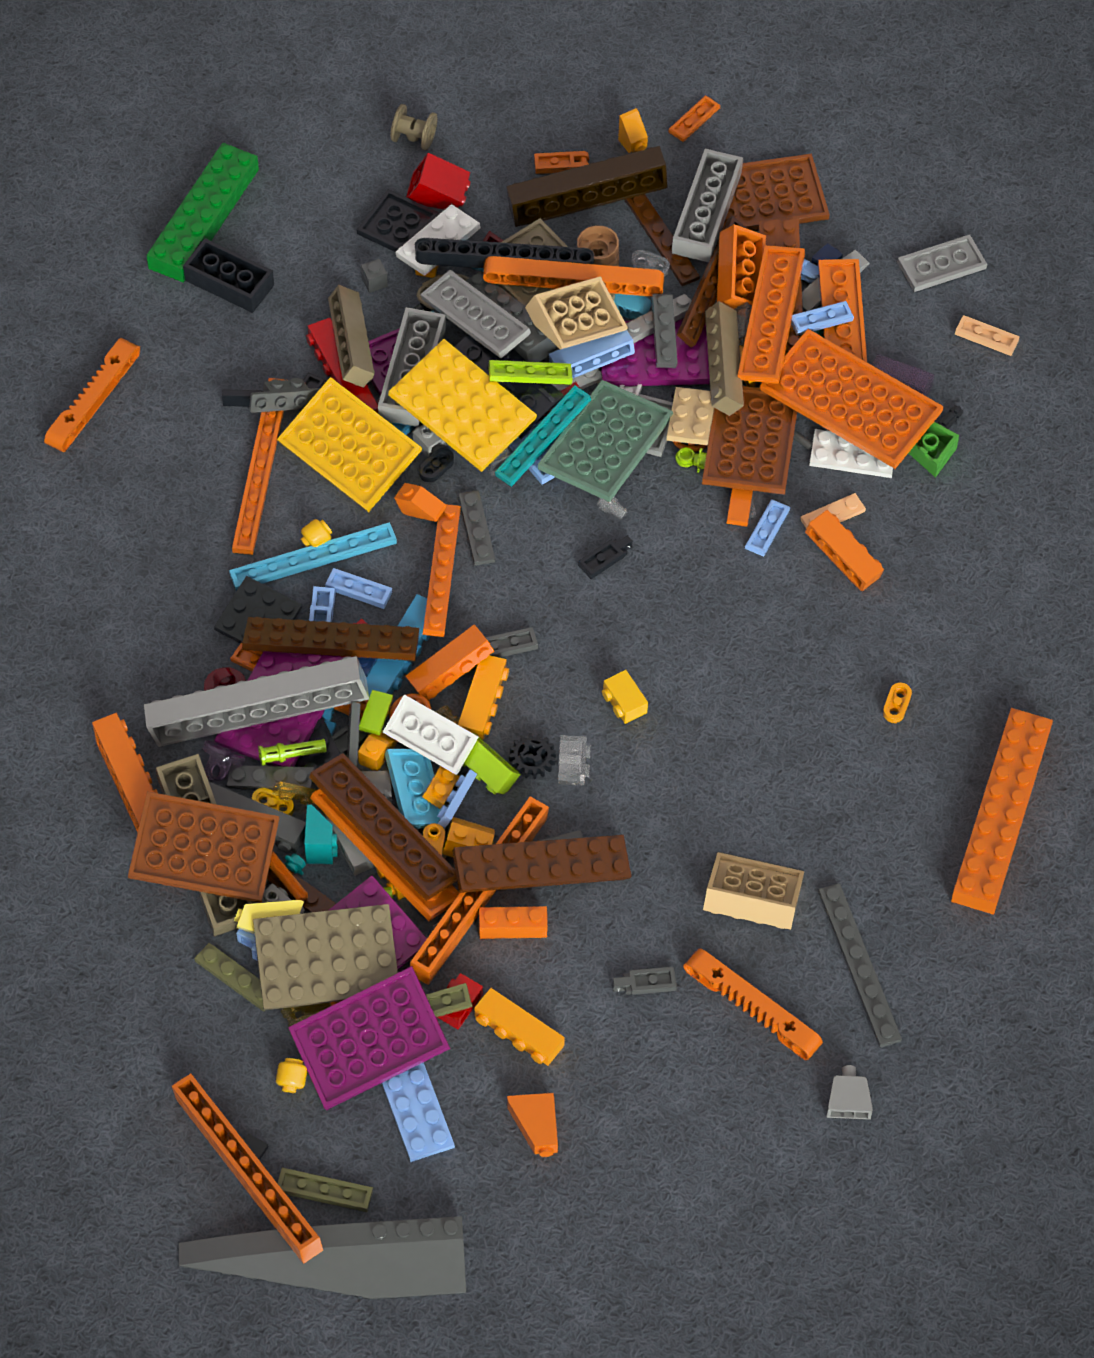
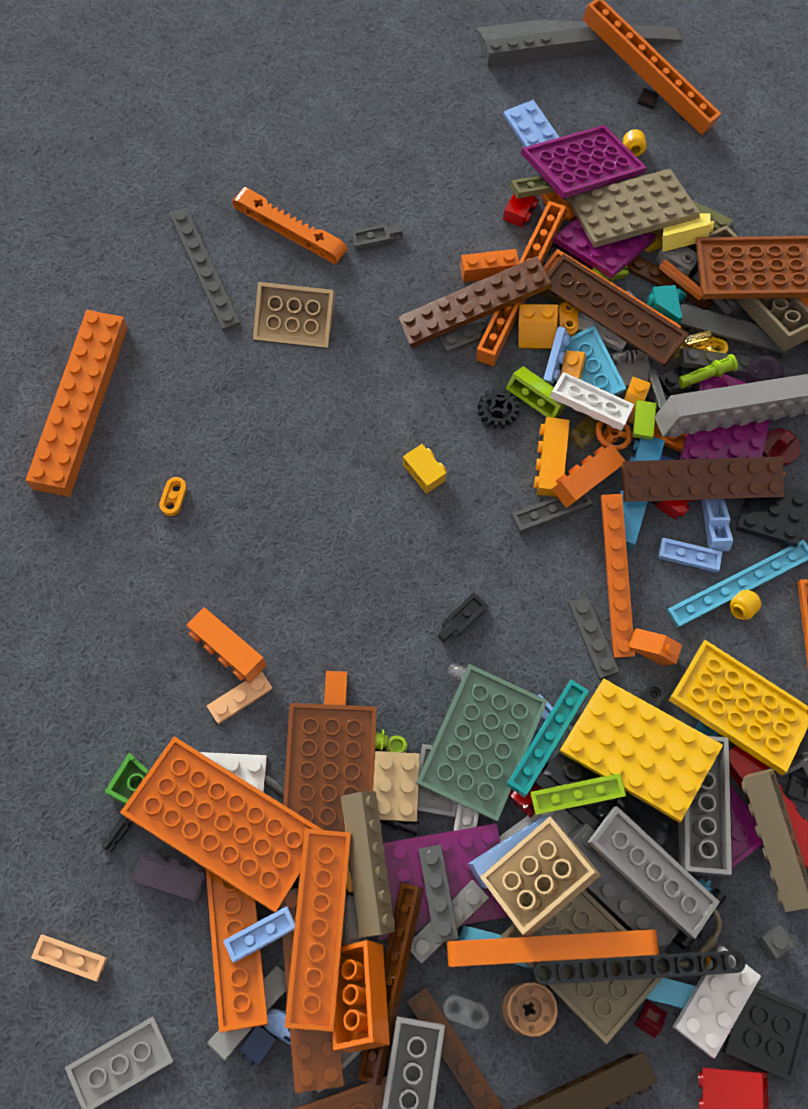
camera: 170 degrees right, 10 degrees up
(325, 1189) = (590, 75): olive plate -> none
(519, 1027) = (470, 191): light orange brick -> none
(536, 1121) = (446, 129): orange slope -> none
(572, 760) = (462, 404): clear brick -> none
(767, 527) = (305, 673): light blue tile -> none
(849, 1096) = (210, 166): light grey torso -> none

